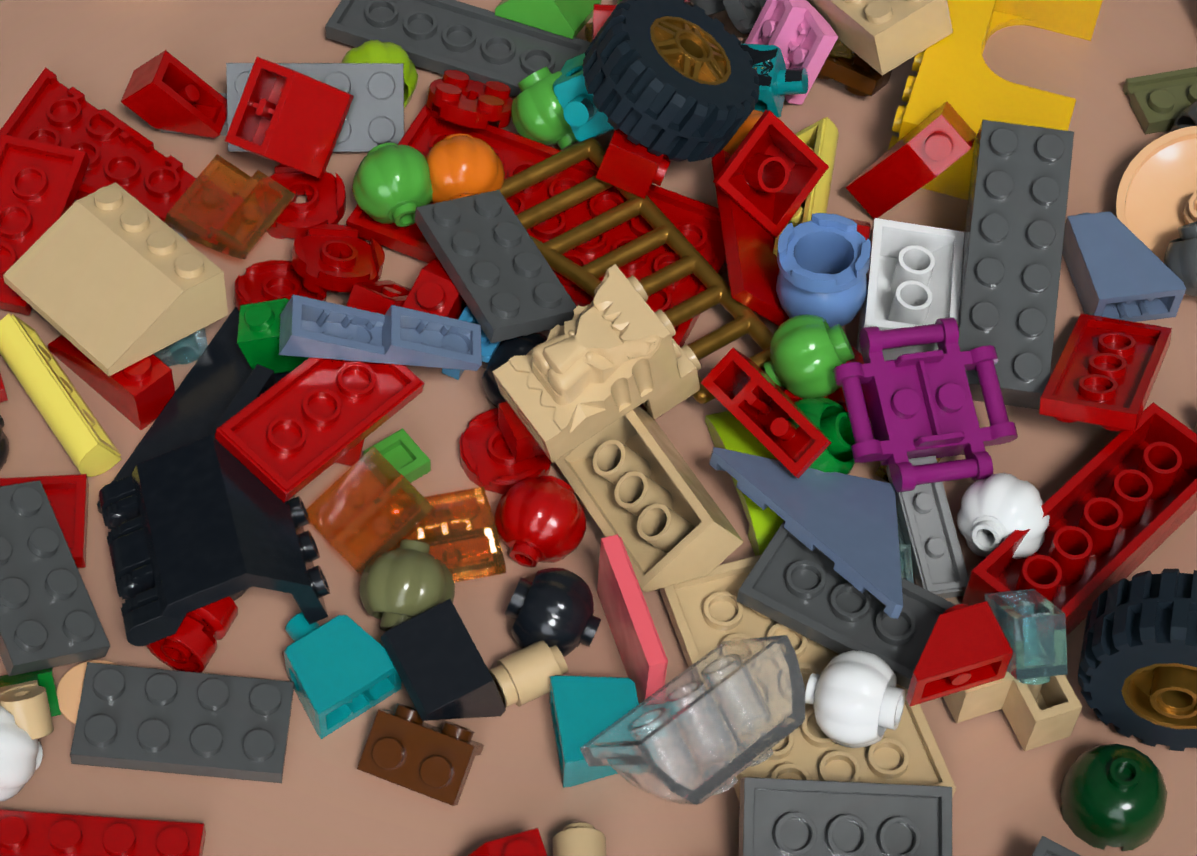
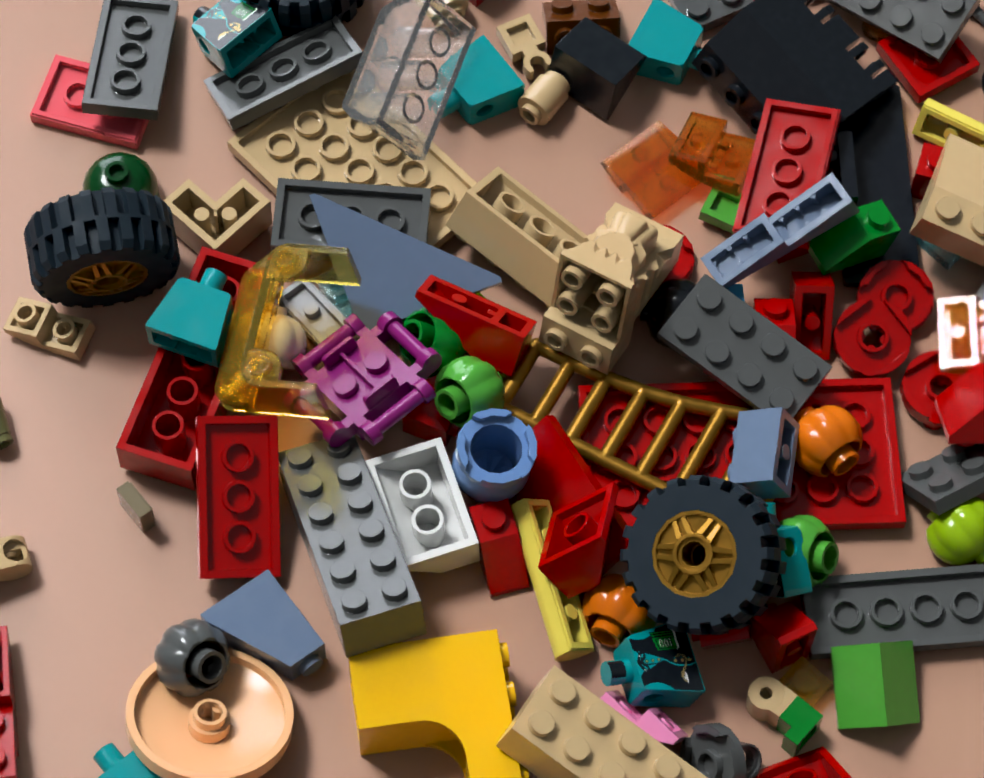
camera: 155 degrees right, 10 degrees up
(392, 184) = (874, 402): bright green plant -> none
(404, 584) = (654, 108): olive plant -> none
(470, 101) = (883, 515): red plate -> none
(509, 759) = (525, 42): none -> tan plate
(540, 520) = (592, 198): red plant -> none
(542, 162) = (764, 452): none -> sand blue brick
(553, 610) = (551, 143): black plant -> none
(630, 619) = (490, 137): coral tile -> none
(856, 699) = (316, 150): white plant -> none
(913, 161) = (464, 607): red slope -> none
(960, 654) = (256, 183): red slope -> none
(1001, 513) = (249, 371): none -> clear yellow windscreen
(1034, 632) = (218, 219): clear light blue slope -> none
(1099, 530) = (194, 318): none -> teal torso

